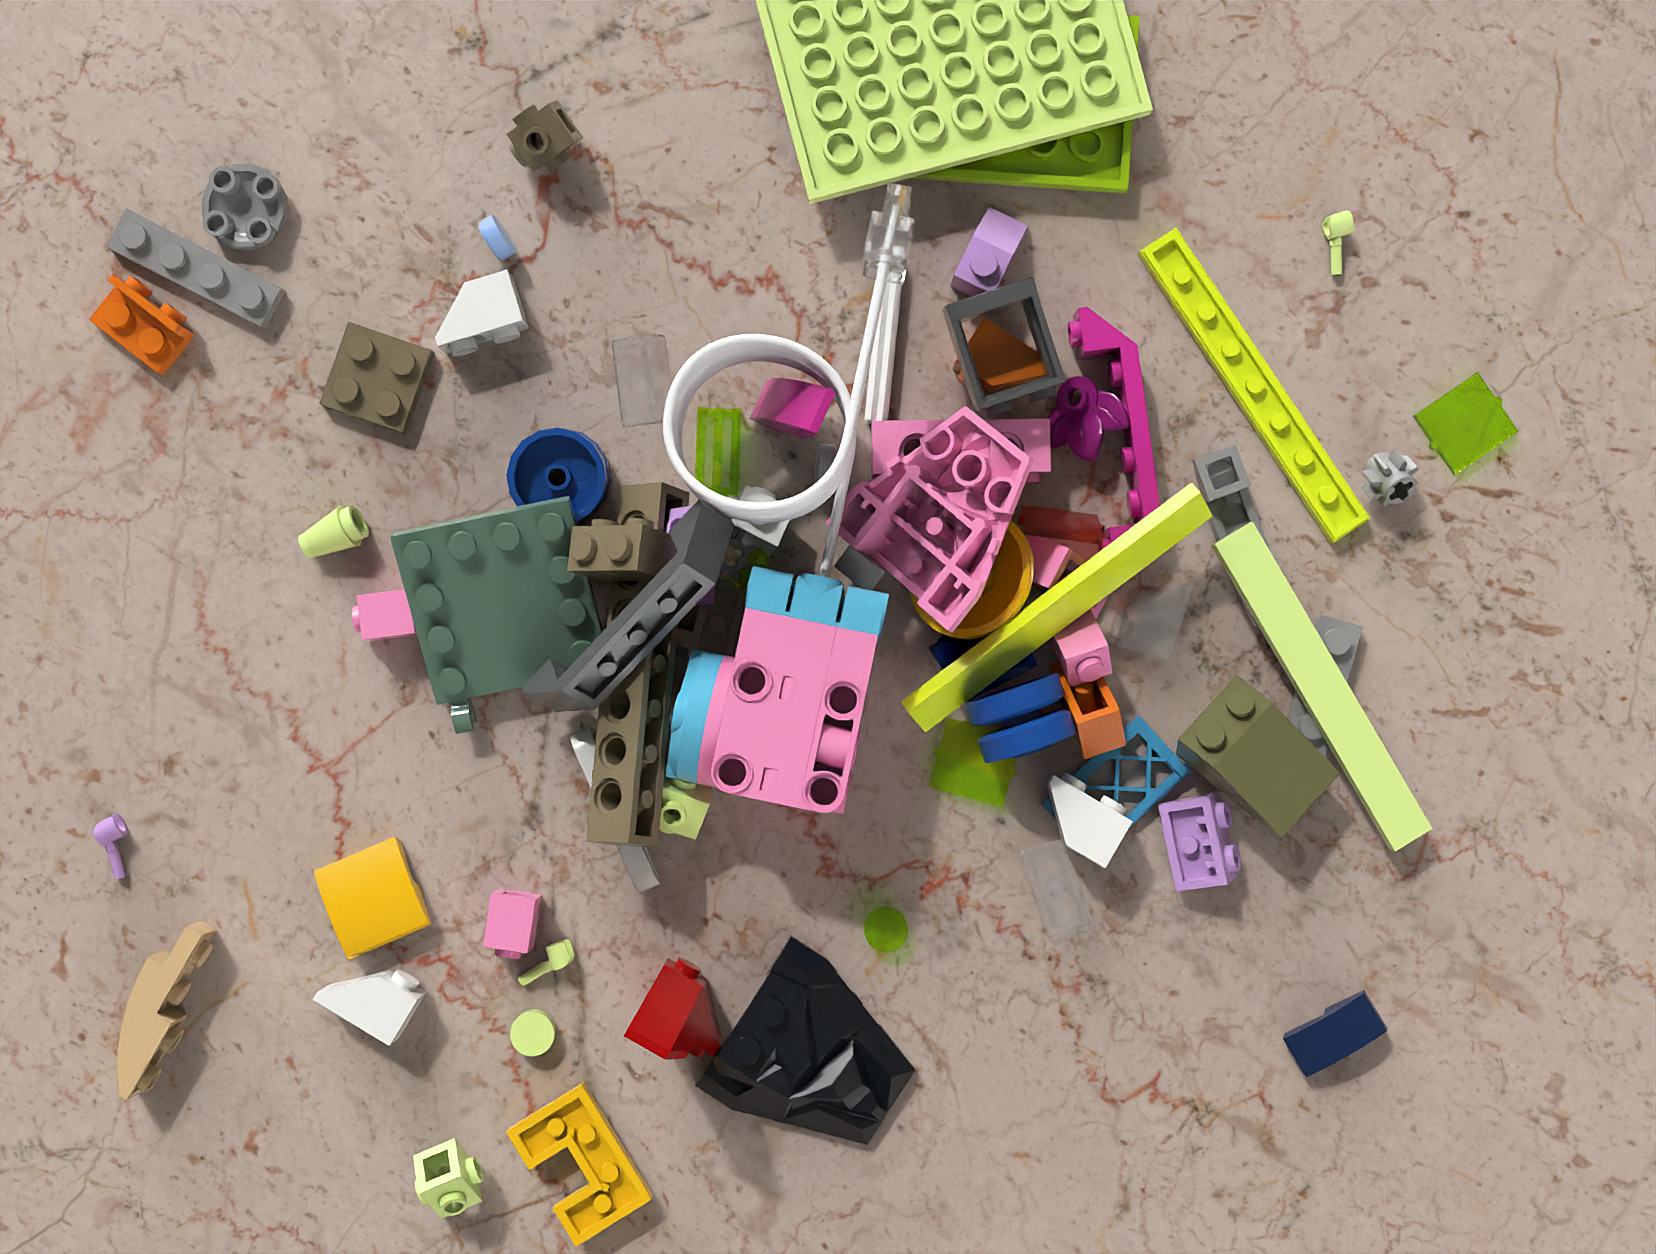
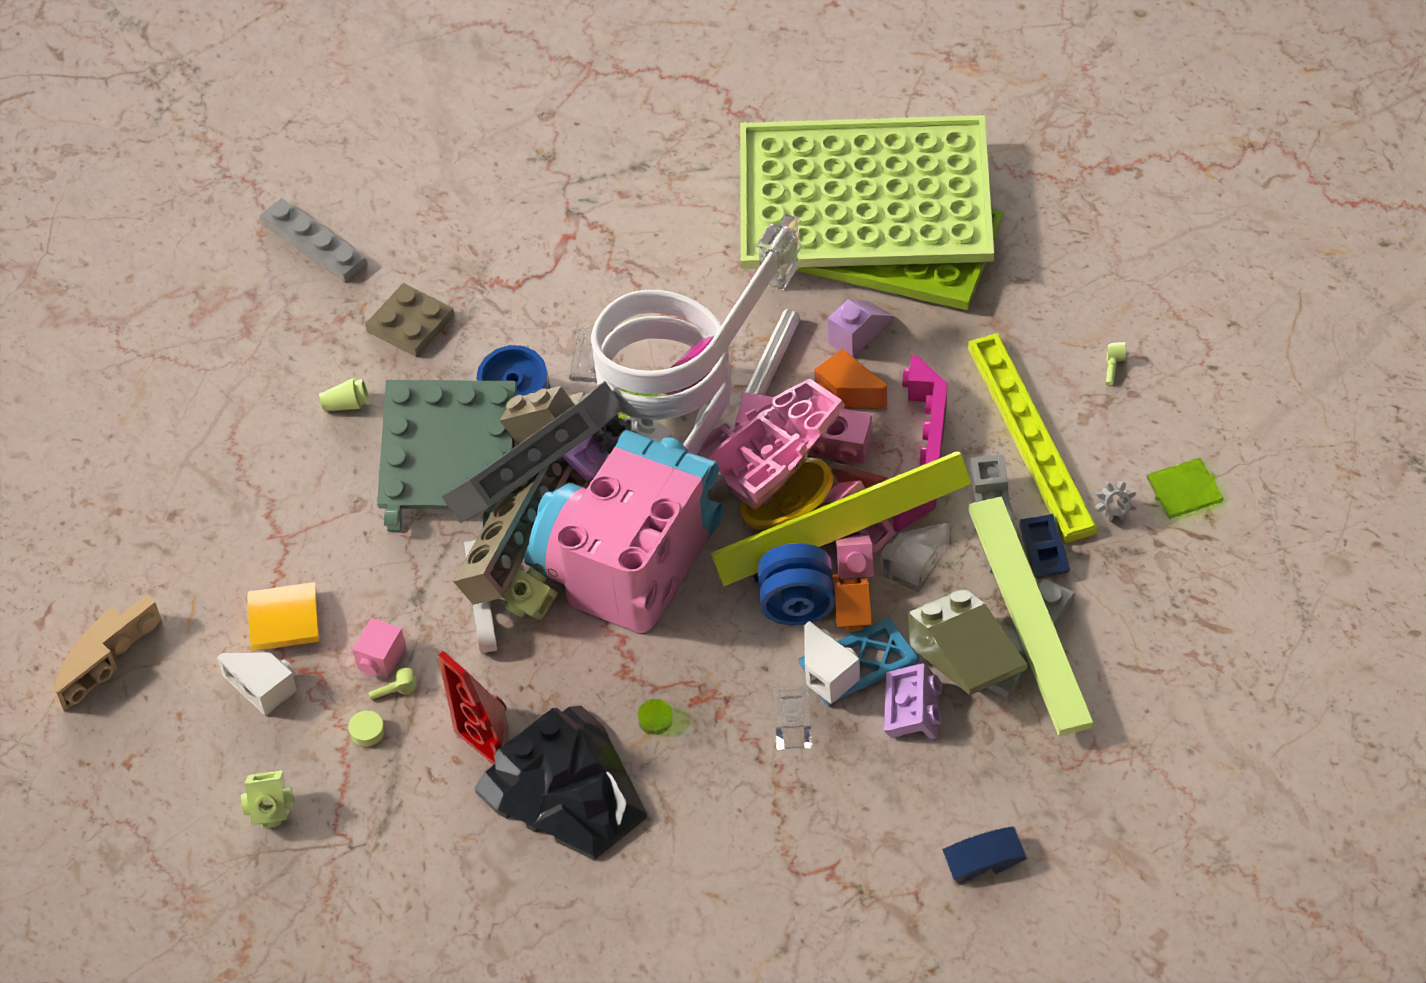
camera: 20 degrees right, 35 degrees down
(106, 835) = (114, 540): lavender hand -> none
(140, 325) = (266, 260): orange bracket -> none
(243, 206) = (359, 211): light grey dish -> none
(383, 616) = (361, 448): bright pink brick -> none
(483, 312) = (495, 293): white slope -> none
(497, 237) = (521, 255): light blue tile -> none
(555, 128) = (573, 203): dark tan brick -> none
(613, 1178) = (390, 834): yellow plate -> none
(961, 767) = (751, 628): clear neon green piece -> none
(989, 302) = (860, 329): dark grey window -> none
(1085, 423) = (896, 423): magenta plate -> none
(1308, 562) = (1044, 546): none -> dark blue slope

